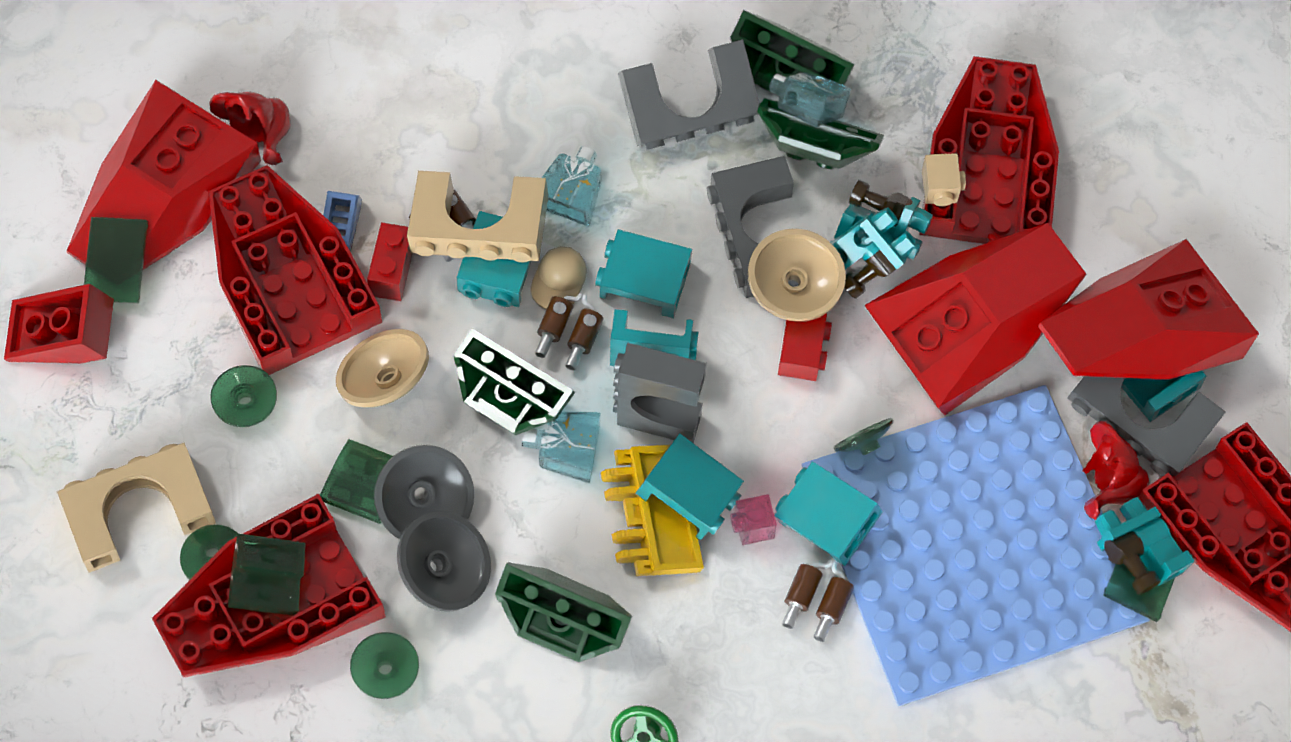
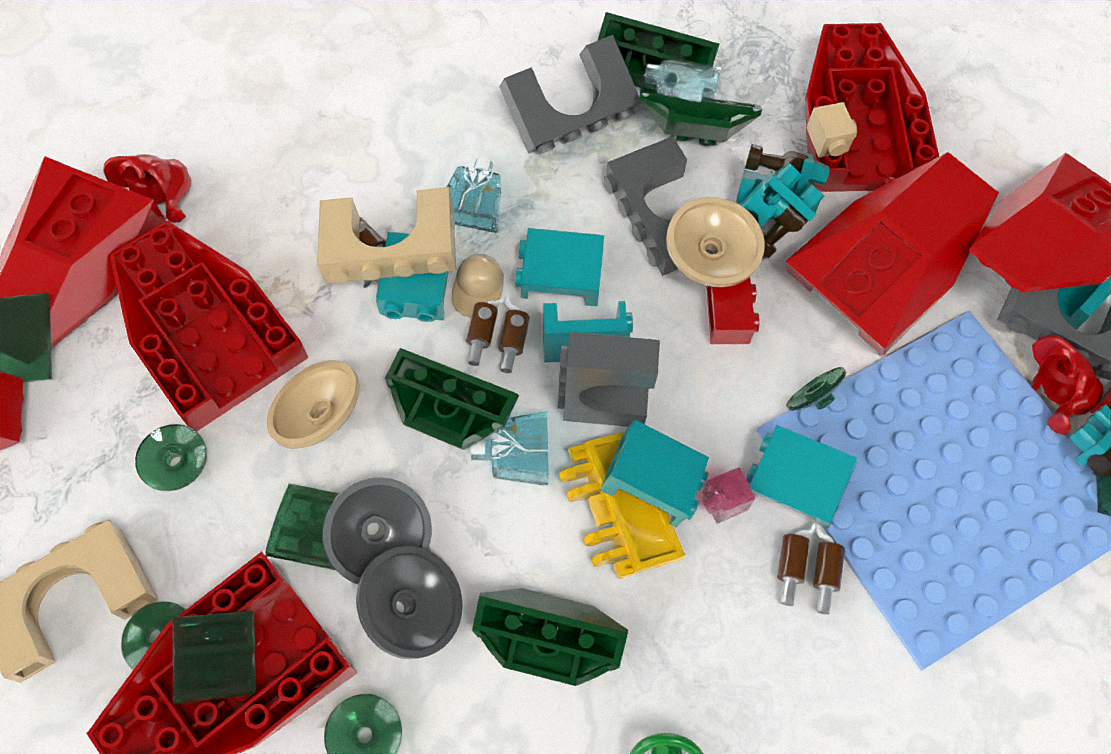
camera: 10 degrees left, 0 degrees up
(348, 200) = (263, 246): medium blue slope -> none
(390, 262) = (306, 297): red brick -> none

